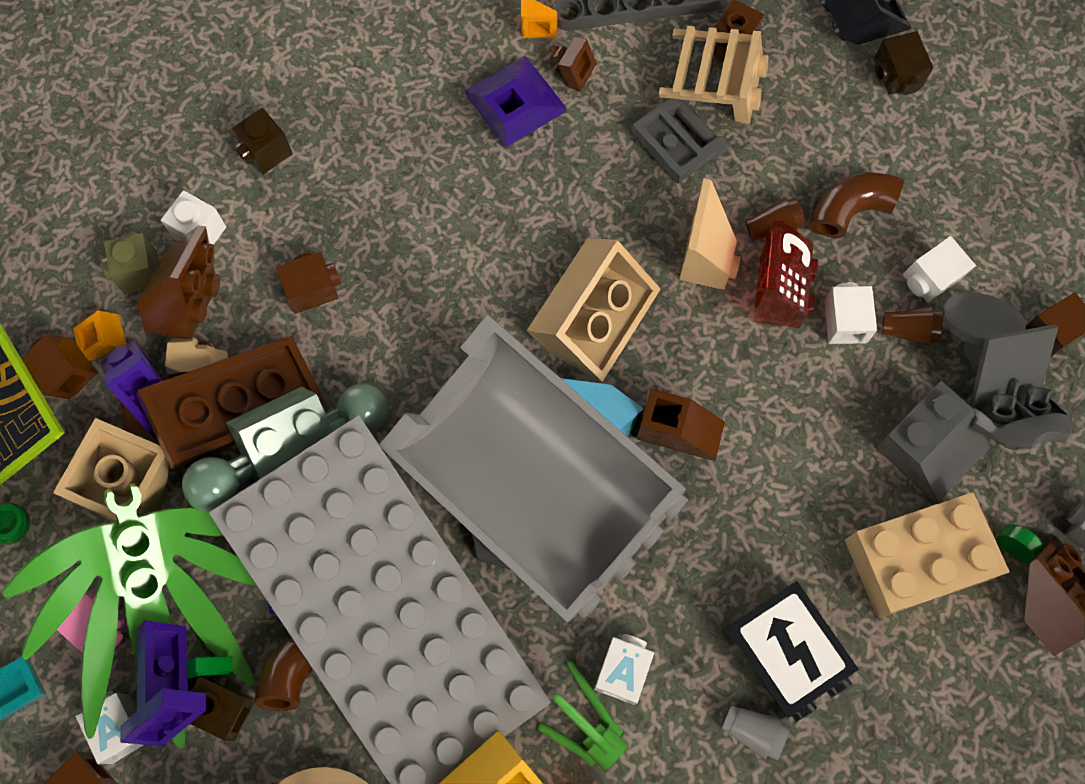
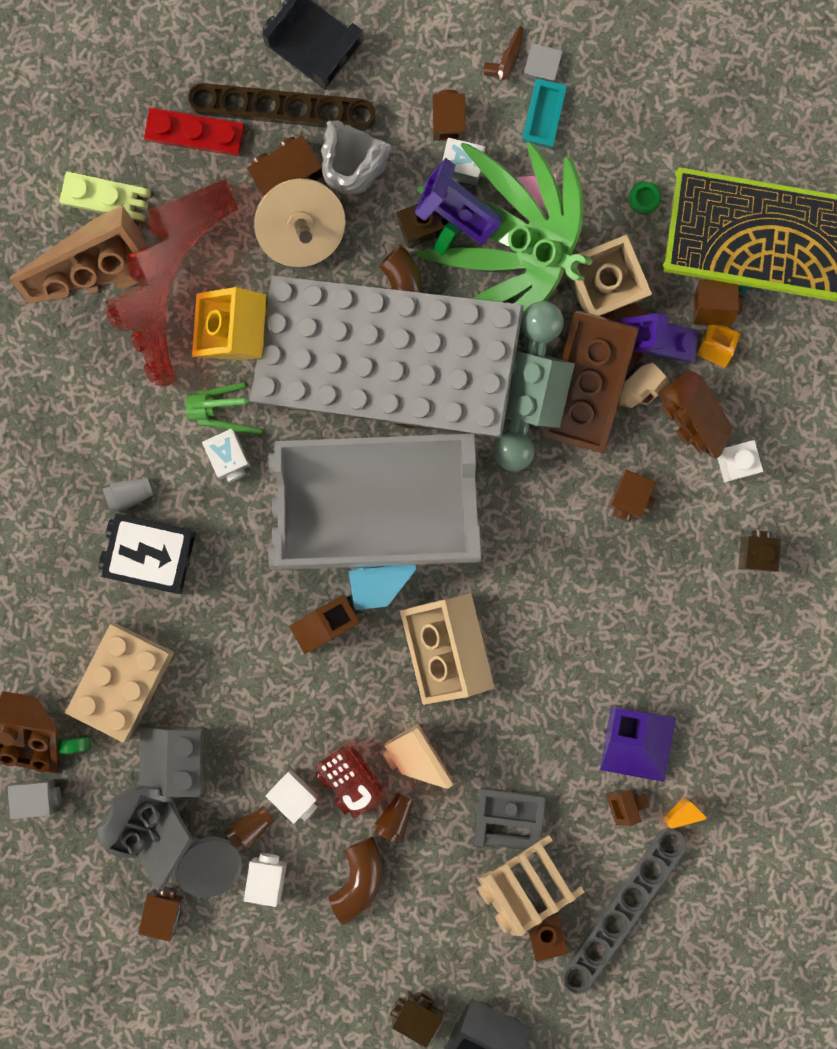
camera: 135 degrees right, 15 degrees up
(130, 262) = (746, 401): olive brick -> none

